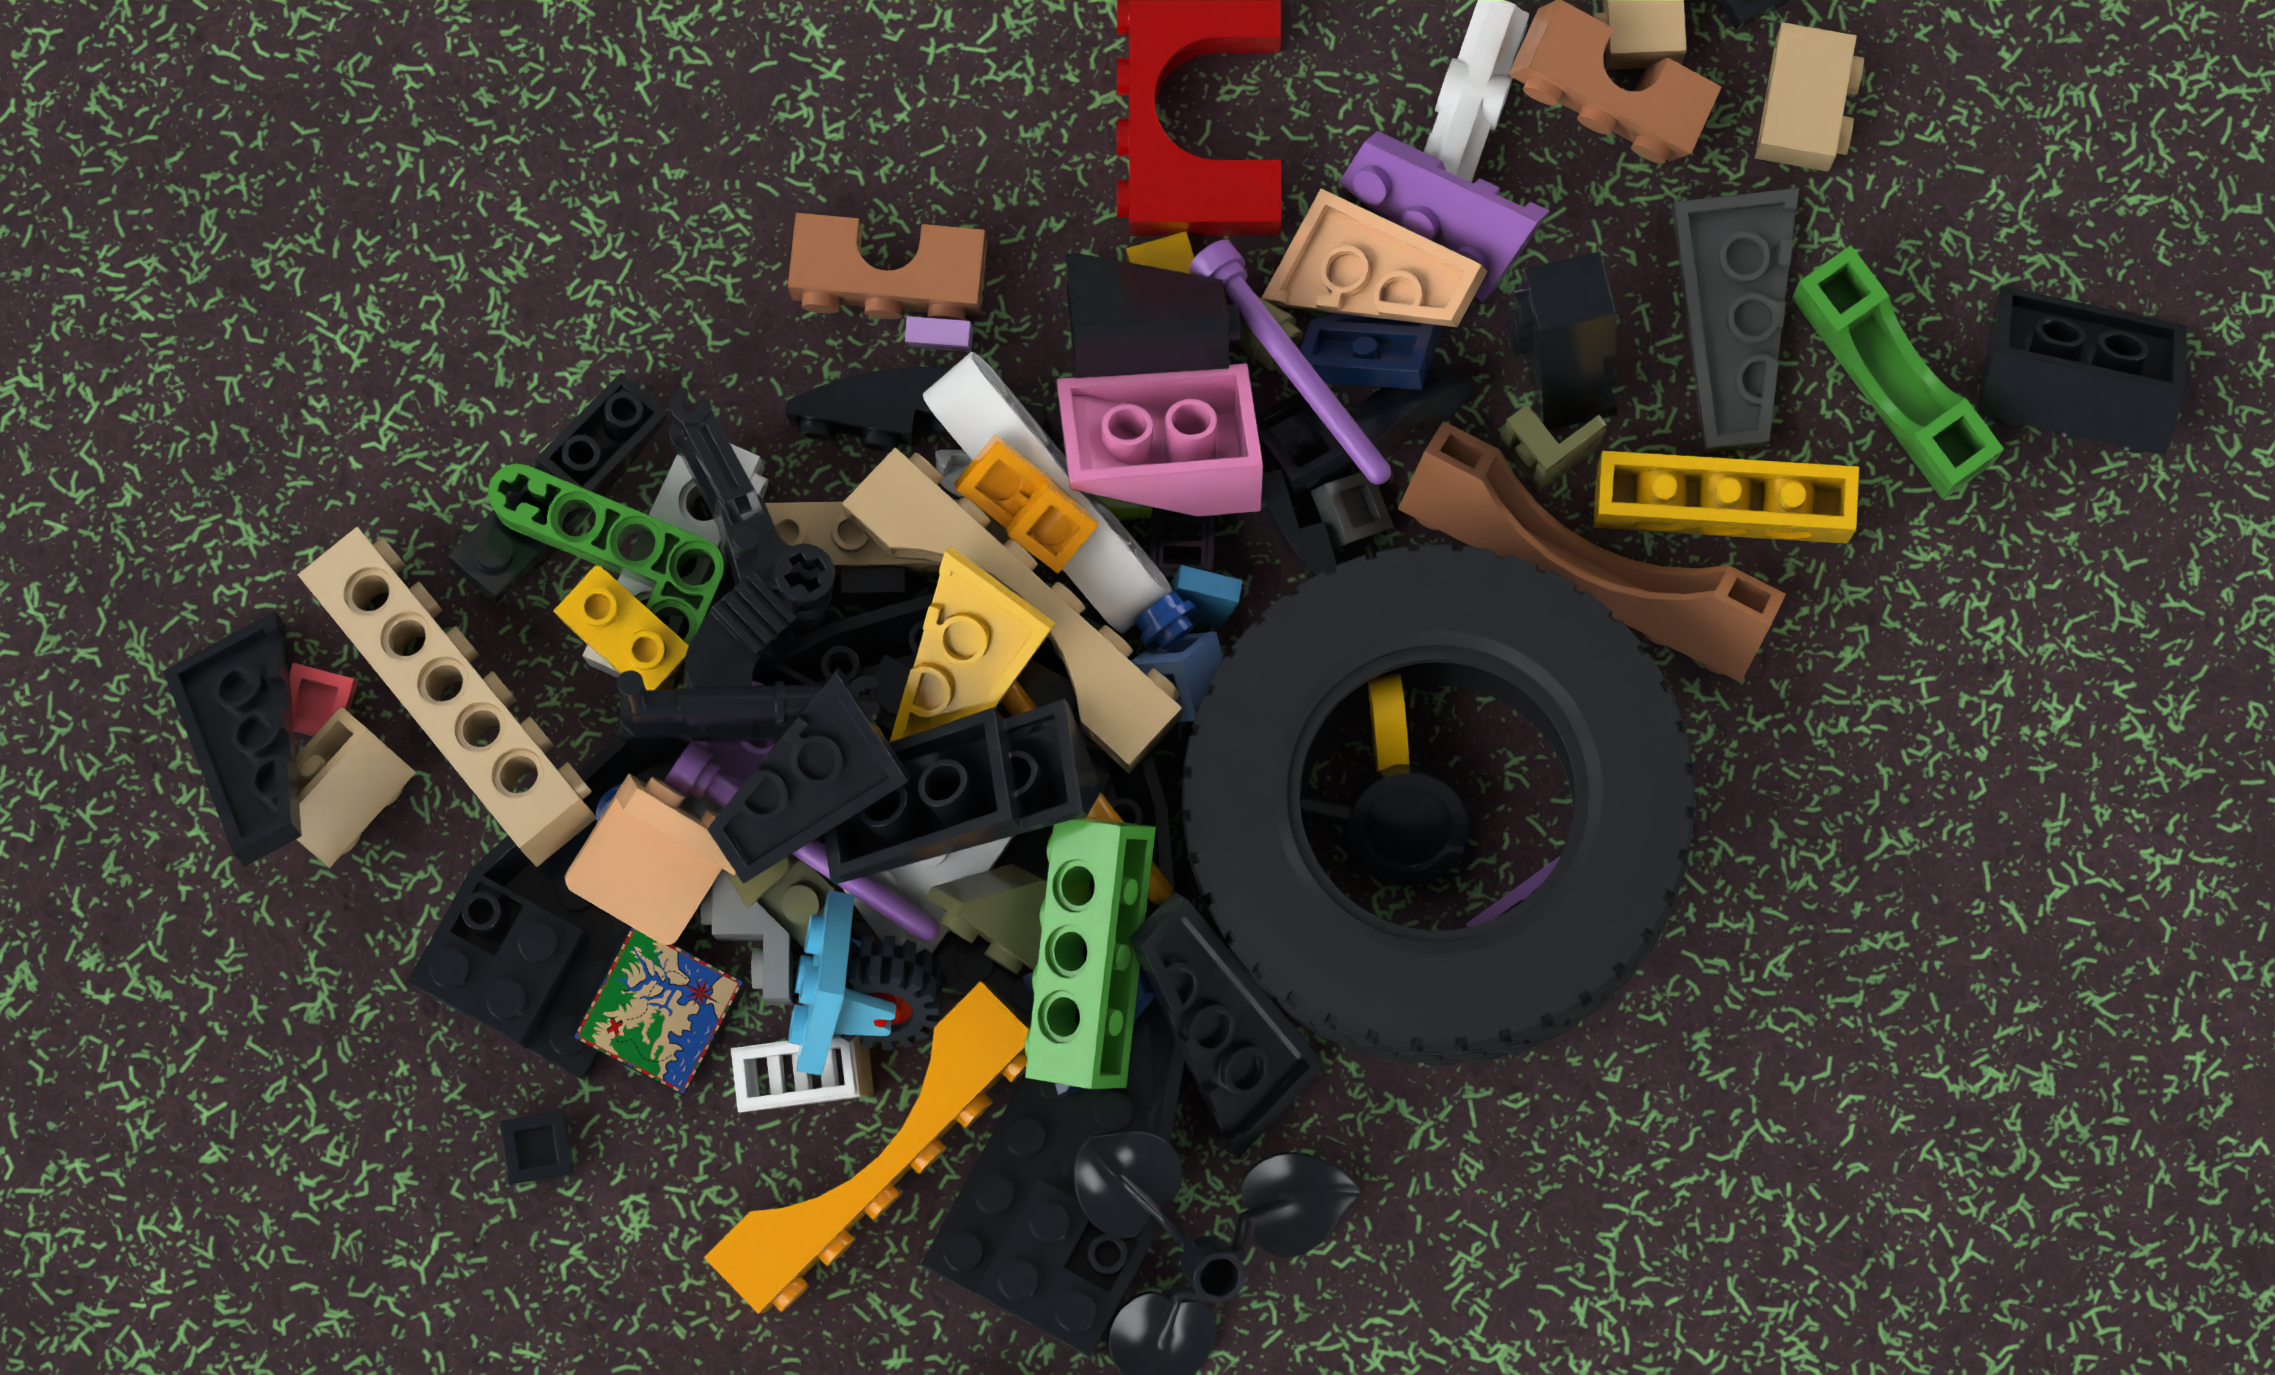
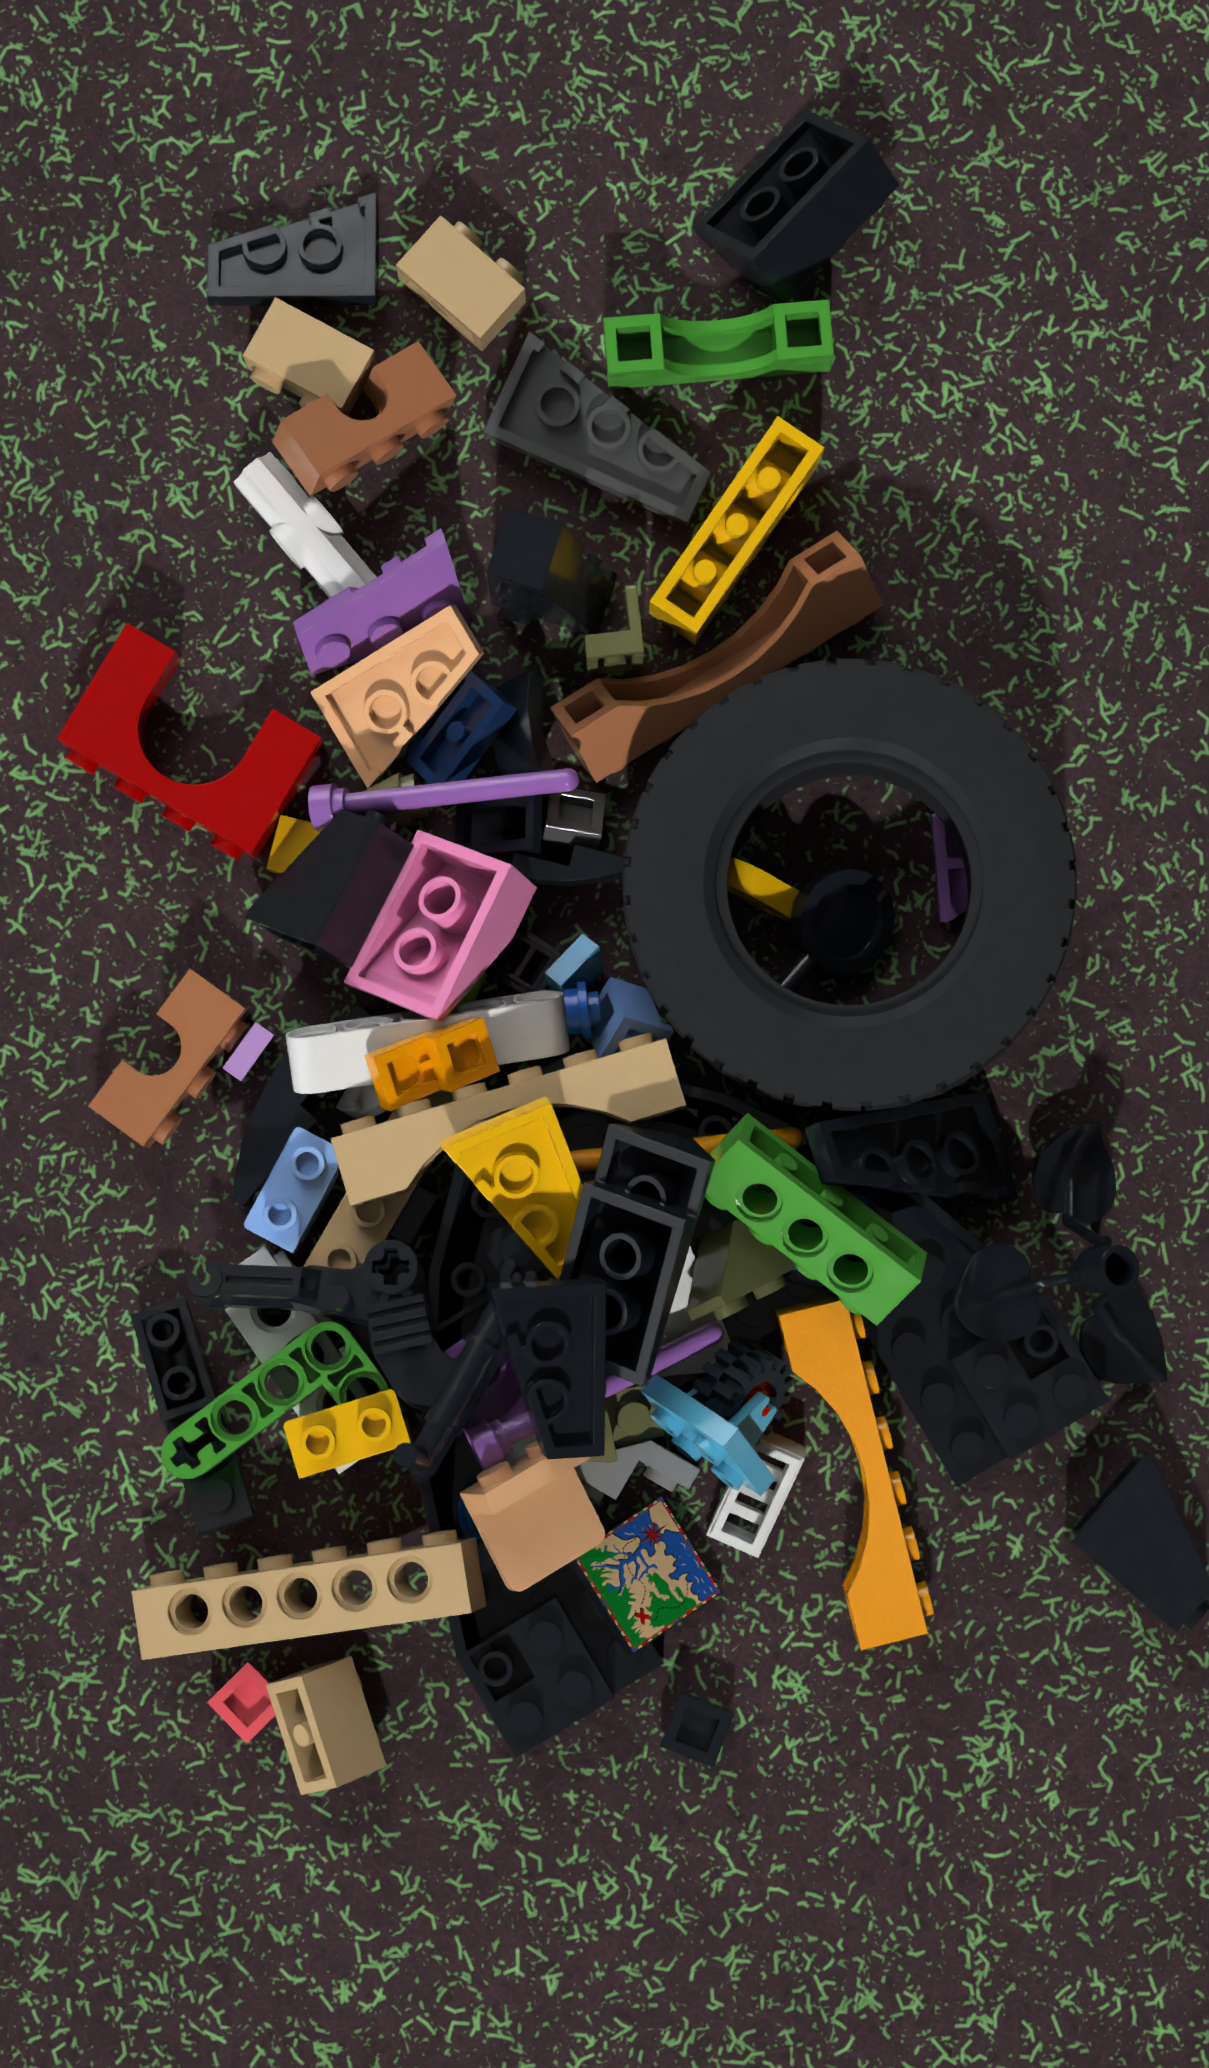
camera: 65 degrees left, 5 degrees up
(242, 734) = (242, 1775): black wing -> none
(825, 455) = (295, 1191): none -> light blue bracket

